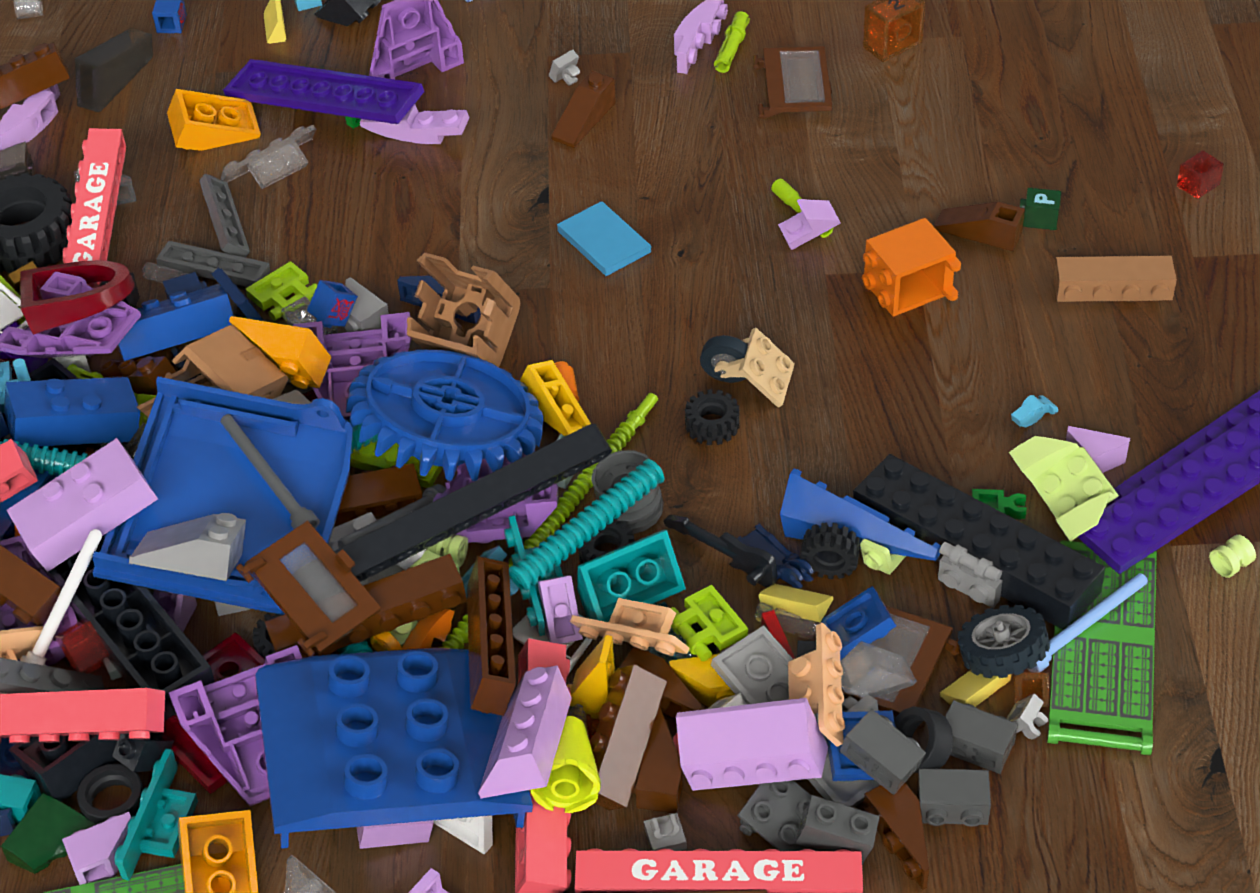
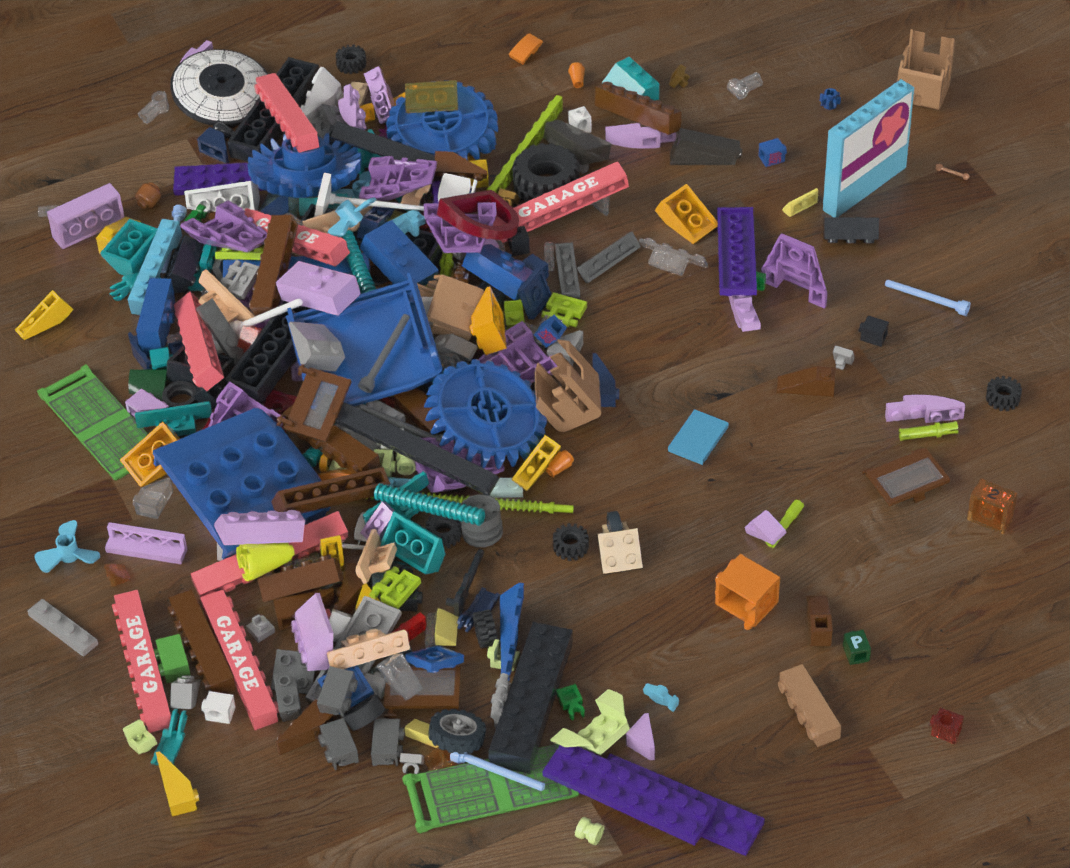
camera: 65 degrees right, 0 degrees up
(542, 29) = (874, 330): none -> black brick

